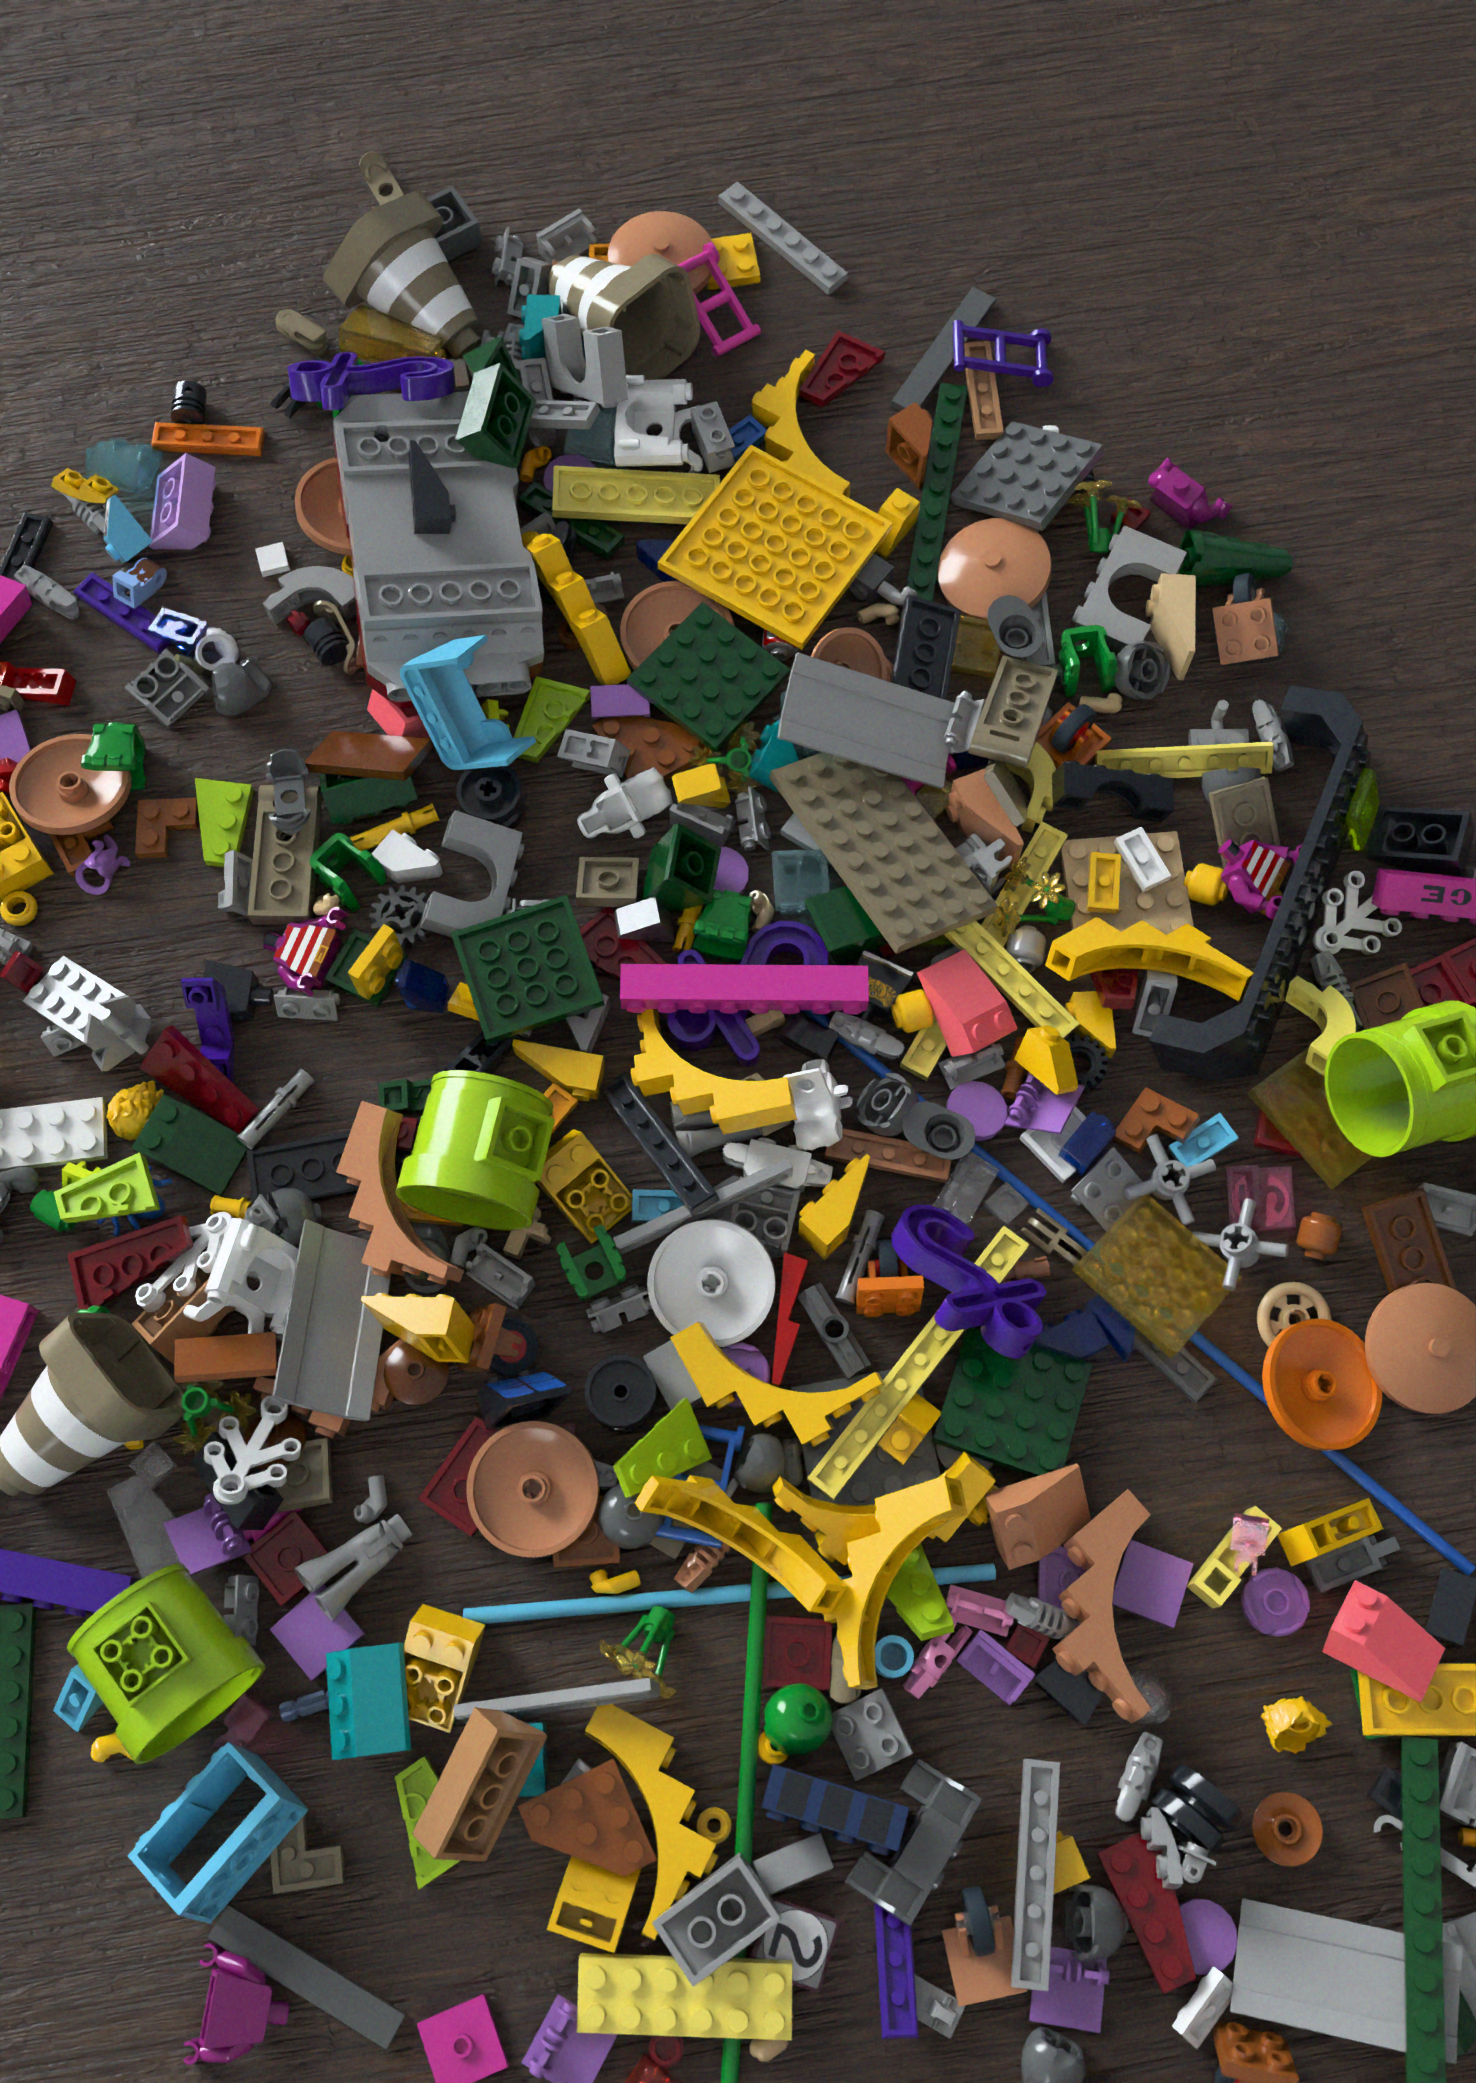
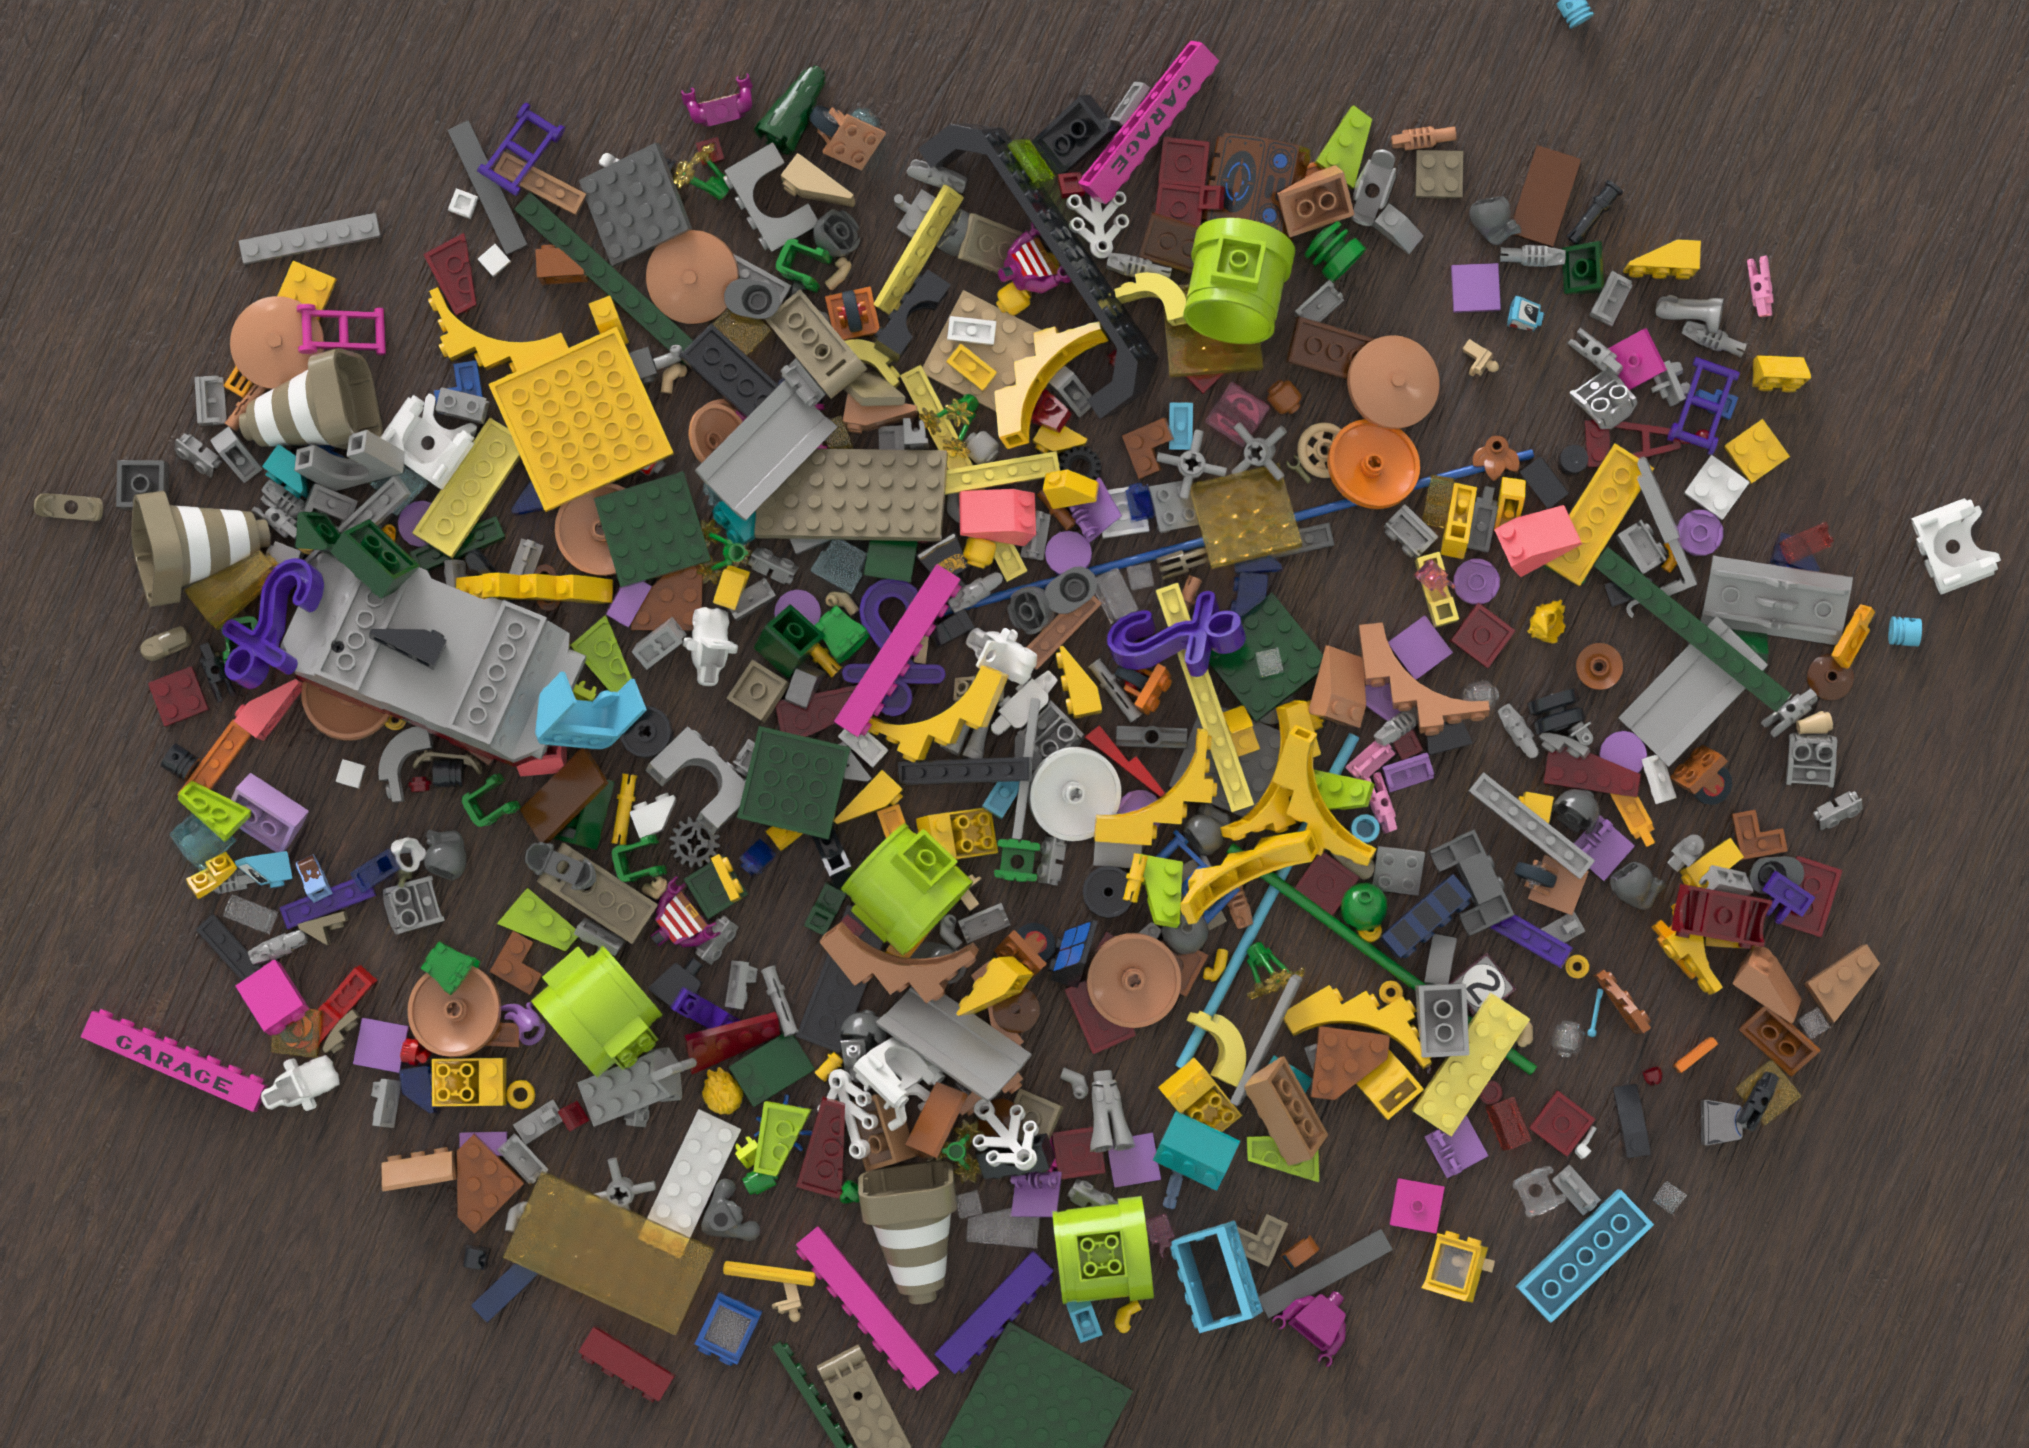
camera: 55 degrees left, 15 degrees up
(69, 550) = (250, 914): none -> clear slope
(91, 618) = (318, 927): none -> dark tan slope
(141, 913) = (598, 1010): none -> lime cylinder
(153, 450) = (214, 810): none -> lime wing
(256, 372) = (178, 696): none -> dark red plate
(282, 1050) = (739, 975): none -> light grey hinge
(286, 442) = (265, 712): none -> coral slope
(312, 1923) = (1299, 1252): none -> dark orange piece
(315, 677) = (474, 810): none -> green piece
(512, 1672) = (1231, 1046): none -> light yellow arch
(619, 1028) = (865, 746): none -> white plate
(654, 1409) = (1135, 878): none -> yellow pin
(878, 396) = (494, 260): none -> white tile
(908, 2066) = (1584, 966): none -> yellow plate
(912, 341) = (463, 203): none -> white tile
(1012, 1408) = (1269, 662): none -> clear plate
(1135, 2009) = (1635, 817): none -> light orange hinge
(1219, 1651) = (1482, 635): none -> dark red plate
(1251, 1304) = (1299, 469): none -> olive hand
(1276, 1480) = (1410, 532): none -> light grey hinge
(1334, 1491) = (1437, 501): none -> clear yellow slope
(1368, 866) = (1069, 184): none -> dark red plate
(1401, 1577) = (1510, 500): none -> yellow slope
(1432, 1530) = (1496, 460): none -> dark orange plate

